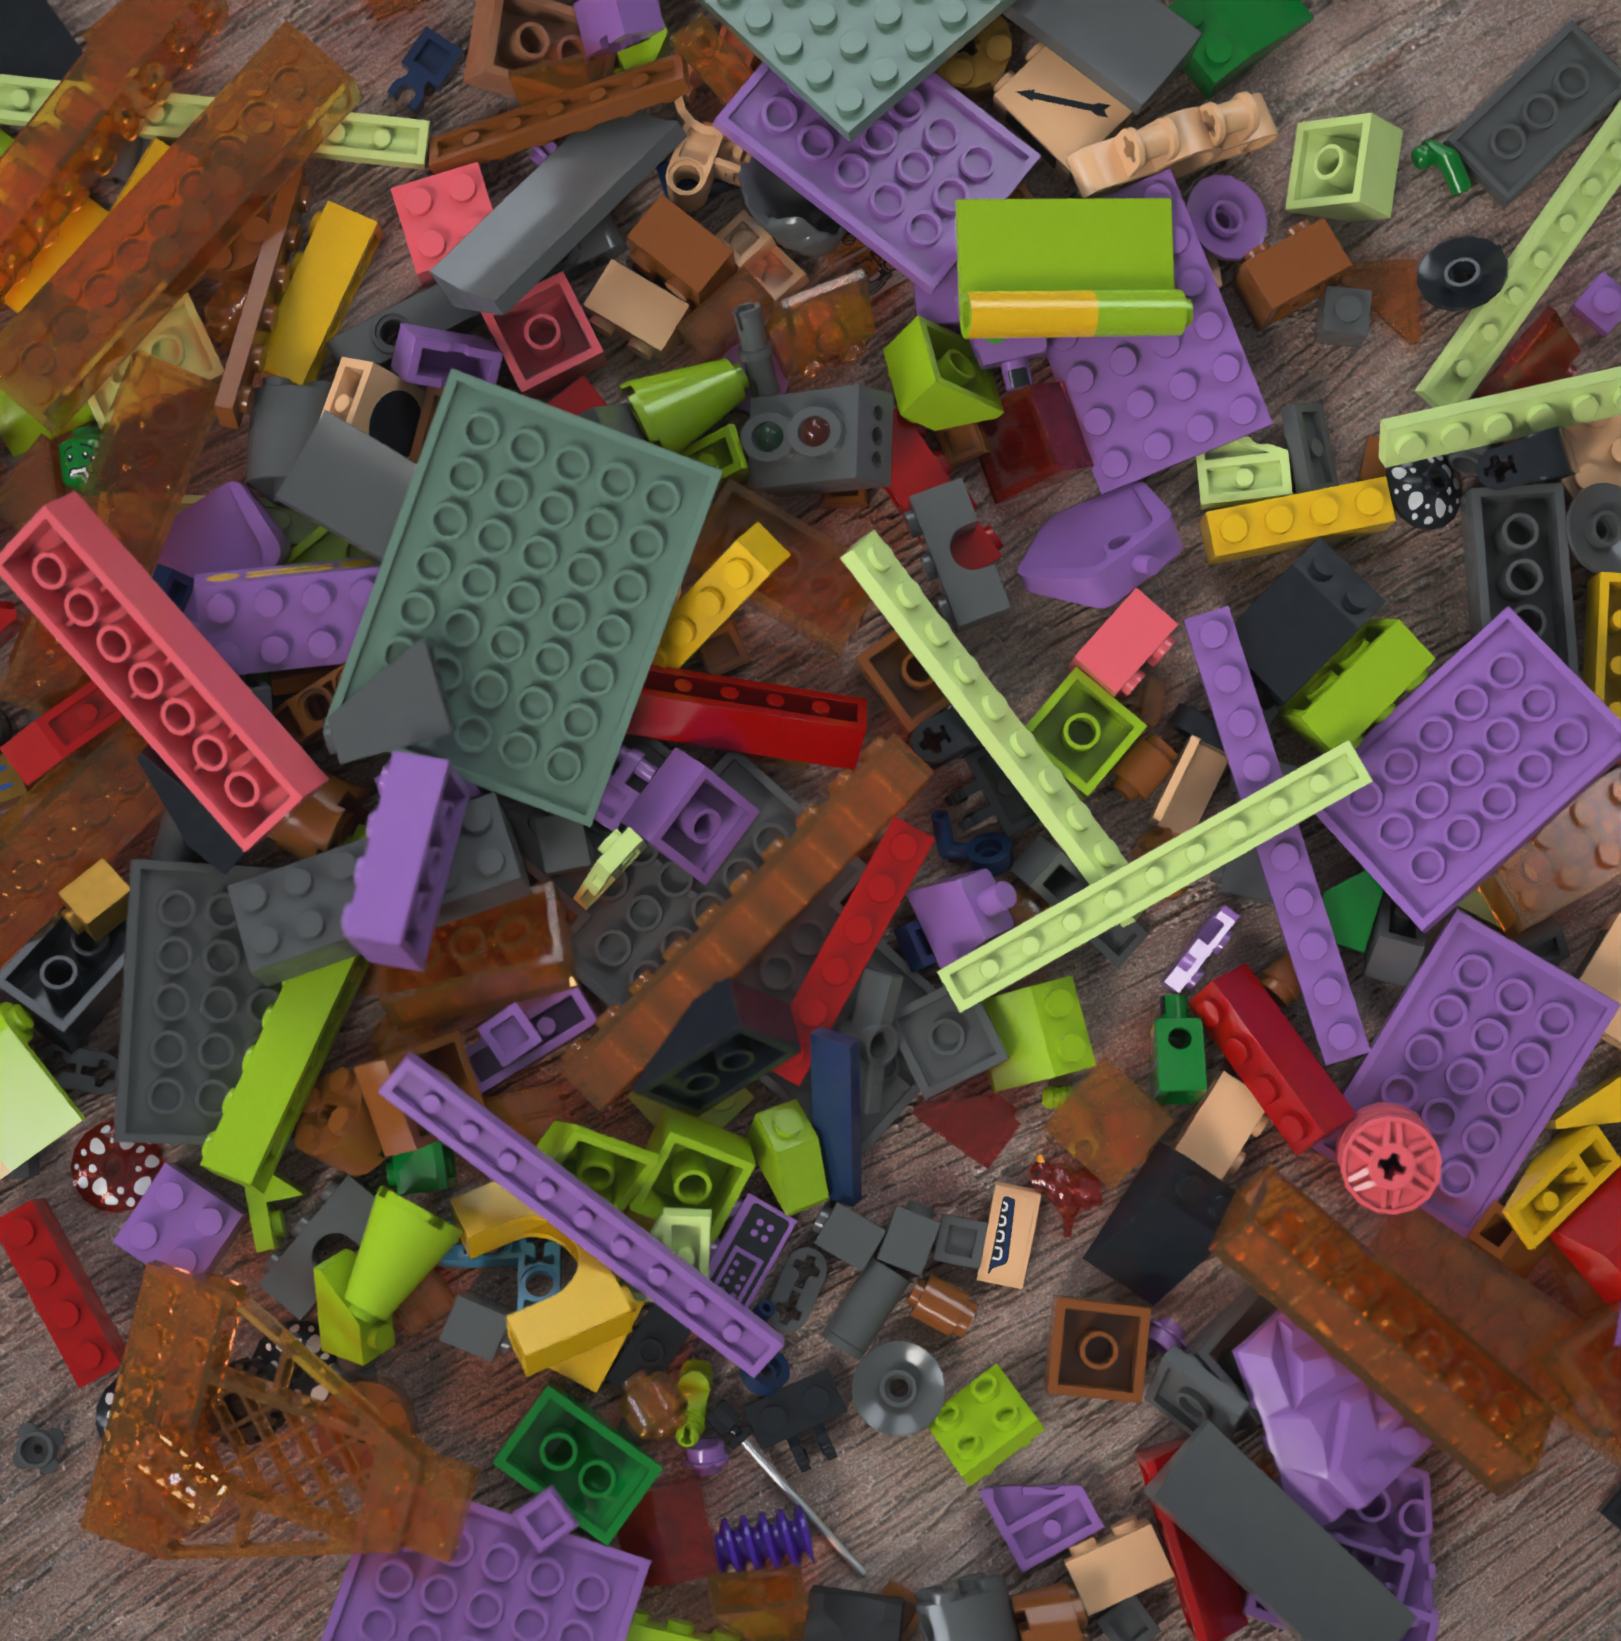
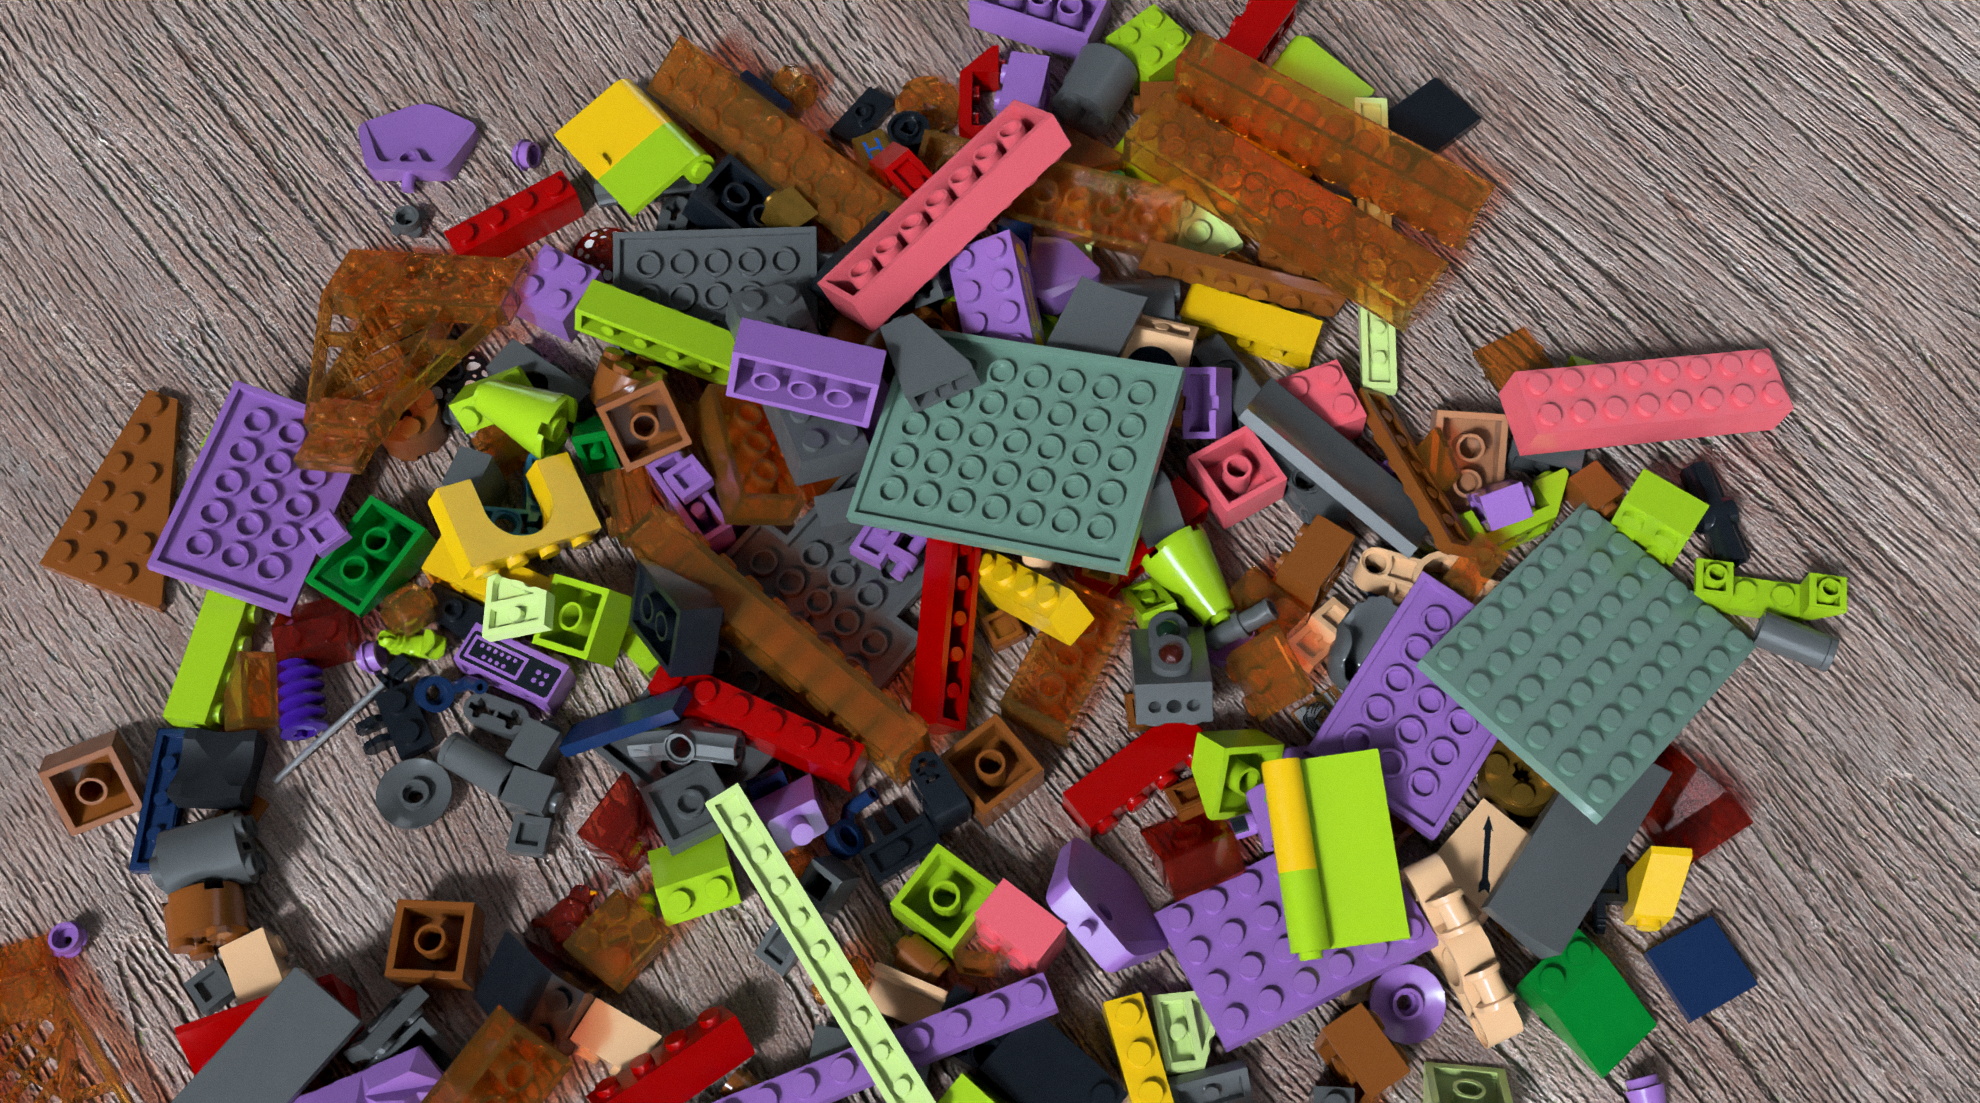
camera: 90 degrees right, 20 degrees down
(267, 1222) = (570, 343): lime slope -> none
(428, 64) = (1441, 388): dark blue plate -> none
(581, 1214) = (543, 532): medium lavender plate -> none
(599, 1161) = (587, 543): lime slope -> none
(618, 854) = (825, 545): yellowish green wing -> none
(635, 311) = (1268, 535): light nougat brick -> none
(690, 815) = (863, 602): medium lavender slope -> none
(789, 1156) = (596, 695): lime slope -> none
(941, 1305) = (478, 823): dark orange brick -> none
(967, 595) = (1111, 768): dark grey arch -> none
(983, 709) = (952, 808): yellowish green plate -> none
(984, 1425) = (378, 858): lime plate -> none
(1009, 1235) = (533, 874): light nougat slope -> none
(1040, 1518) = (304, 912): medium lavender wing -> none
(1165, 1334) = (444, 1006): medium lavender plate -> none
(1175, 1073) = (662, 994): green torso -> none
(1209, 938) = (752, 1005): medium lavender wing -> none

